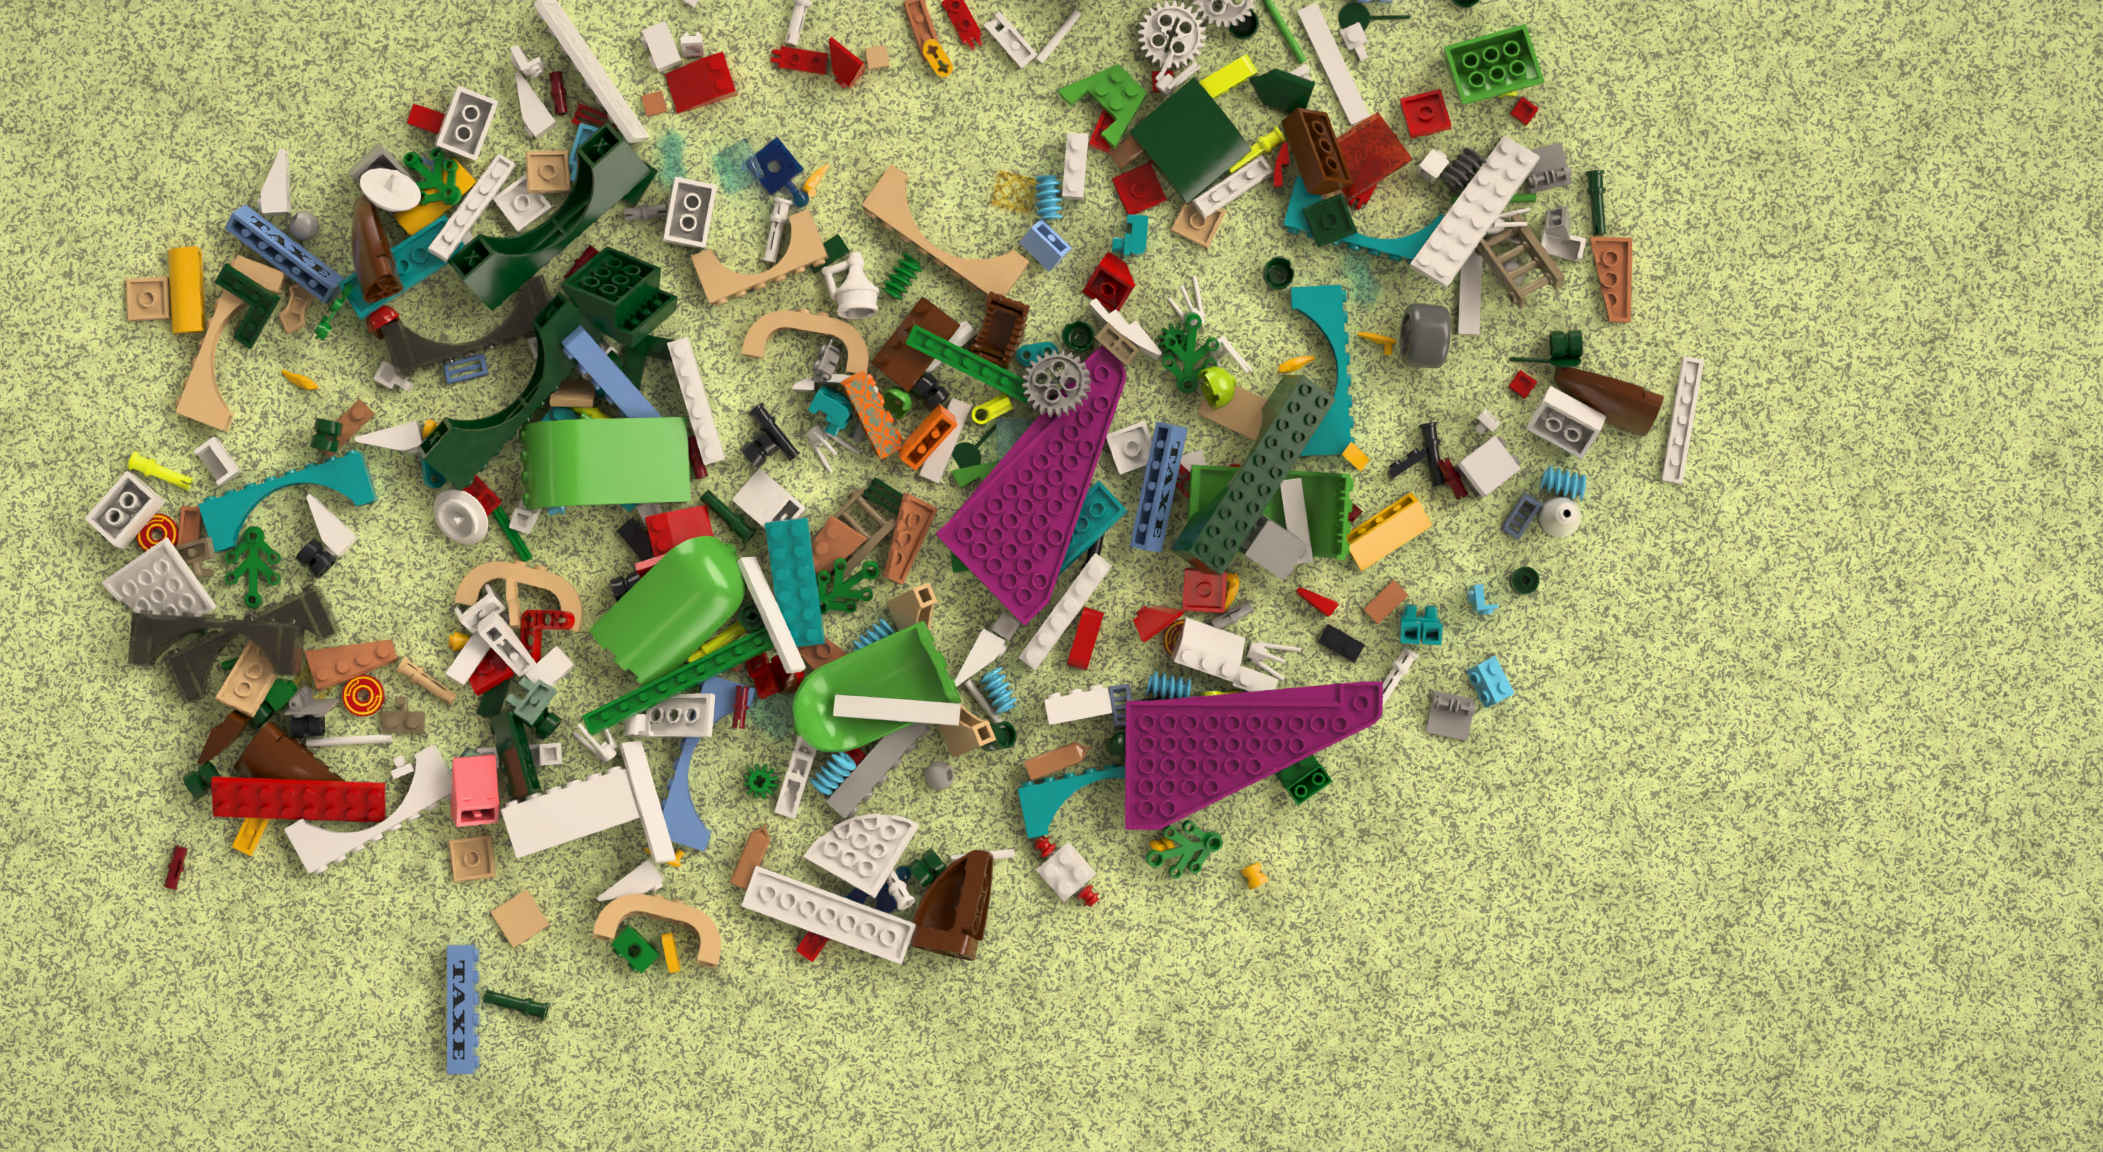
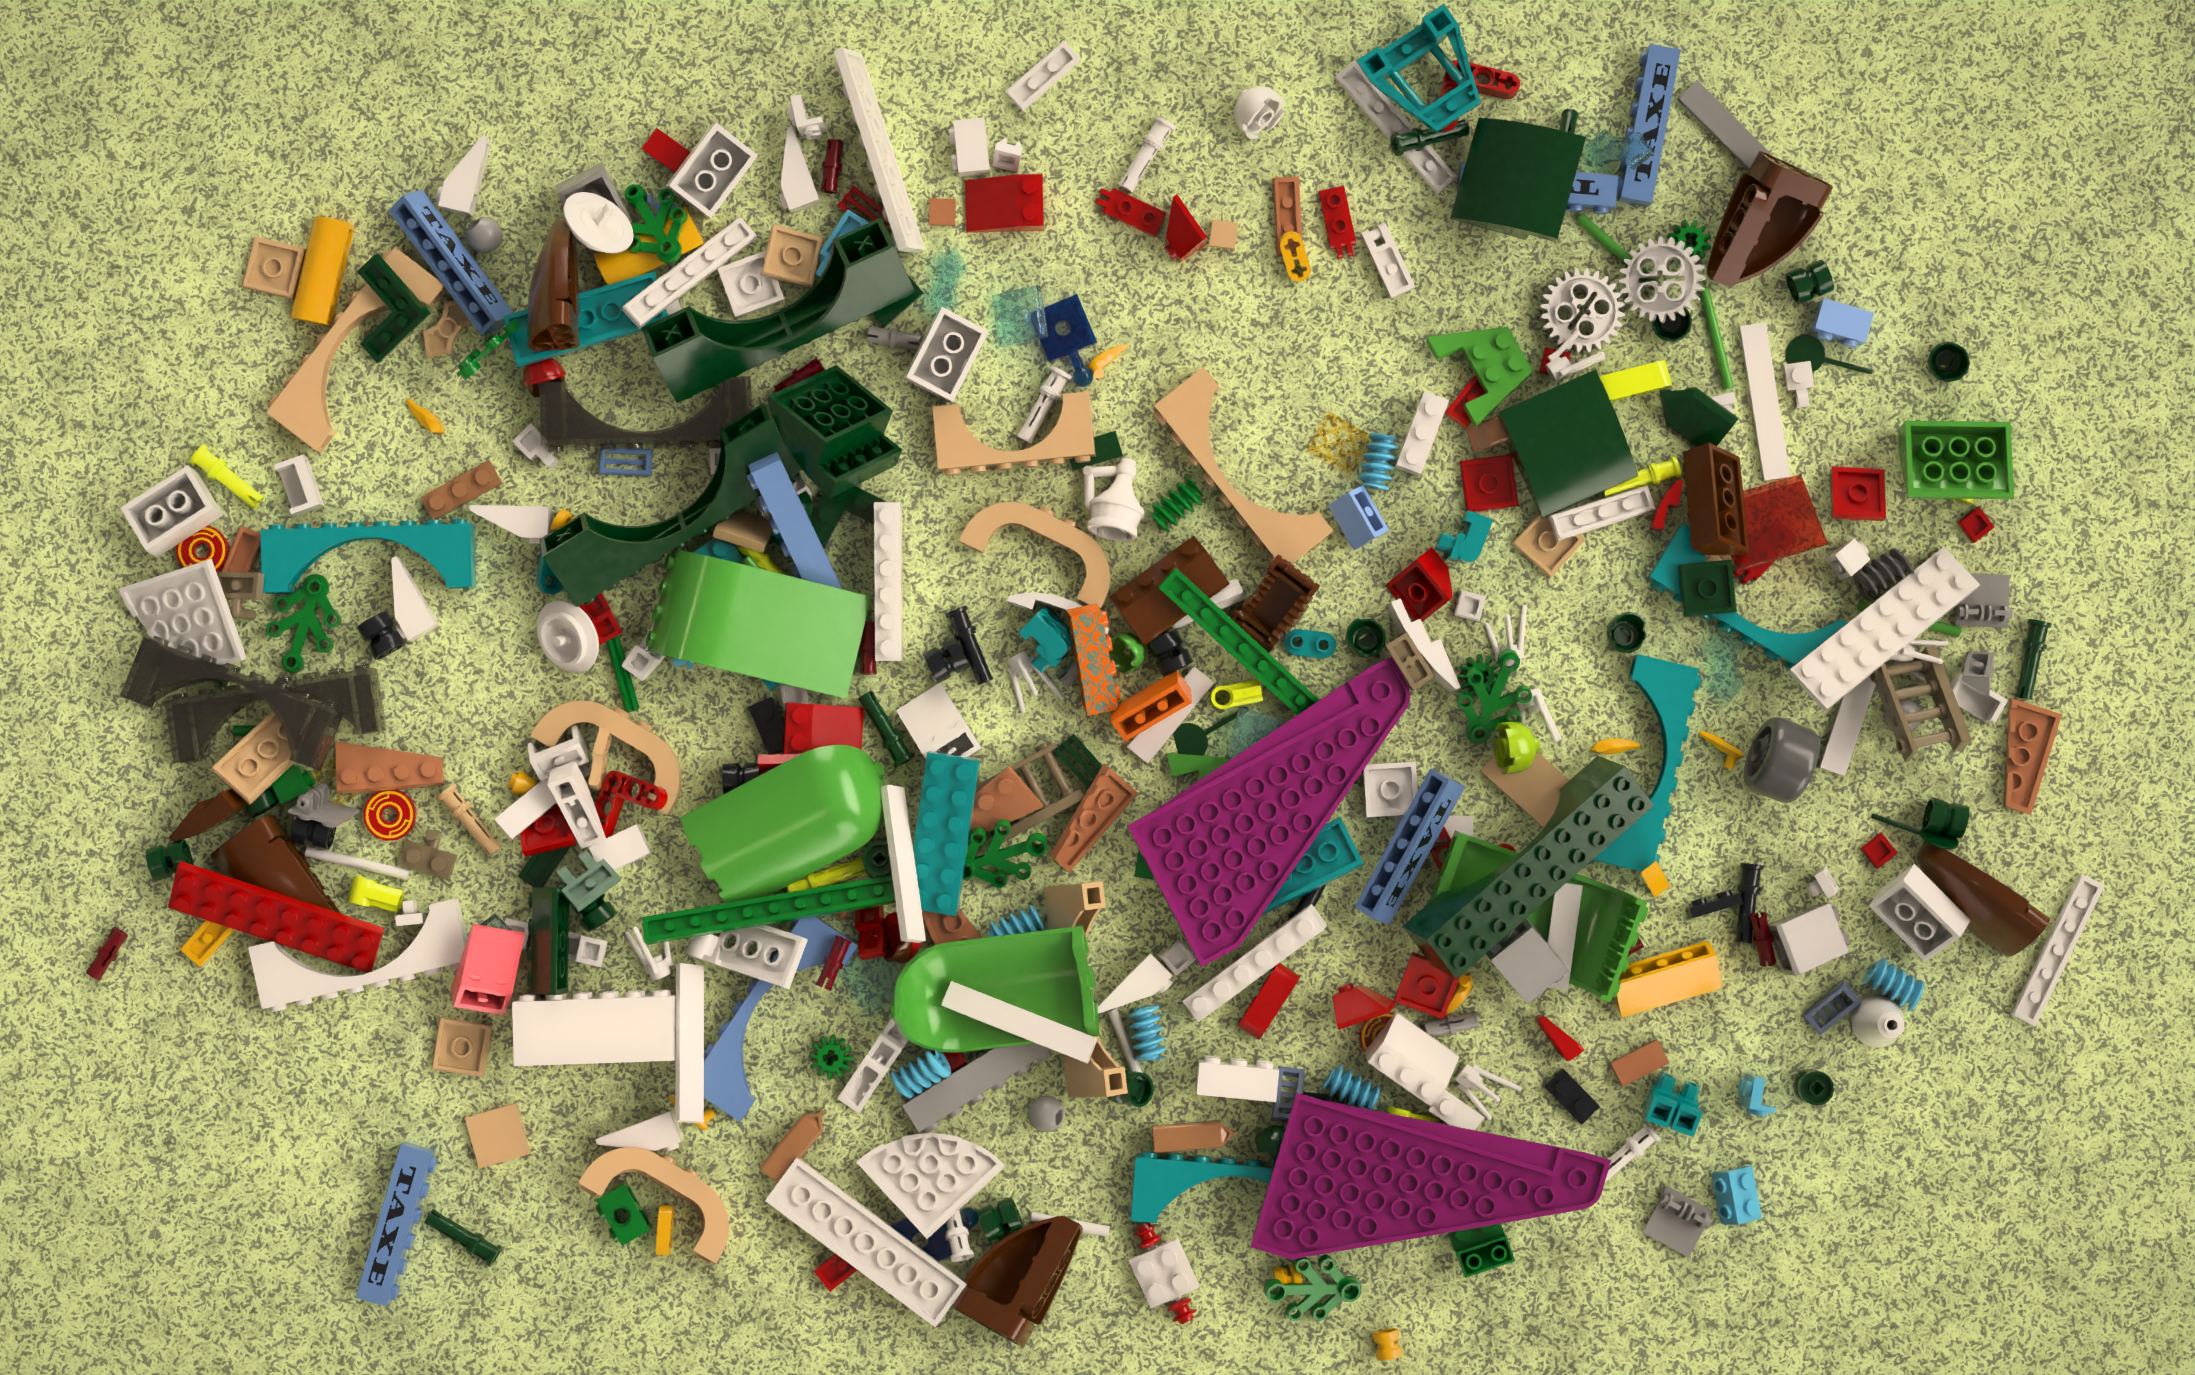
camera: 15 degrees right, 0 degrees up
(331, 429) = (435, 483): dark green wheel -> none
(364, 760) = (369, 893): none -> neon yellow piece
(821, 367) = (1049, 584): light grey hinge -> none
(1058, 36) = (1446, 272): white bar -> none
(1073, 373) = (1347, 681): light grey gear -> none
(1151, 288) = (1469, 605): none -> white tile

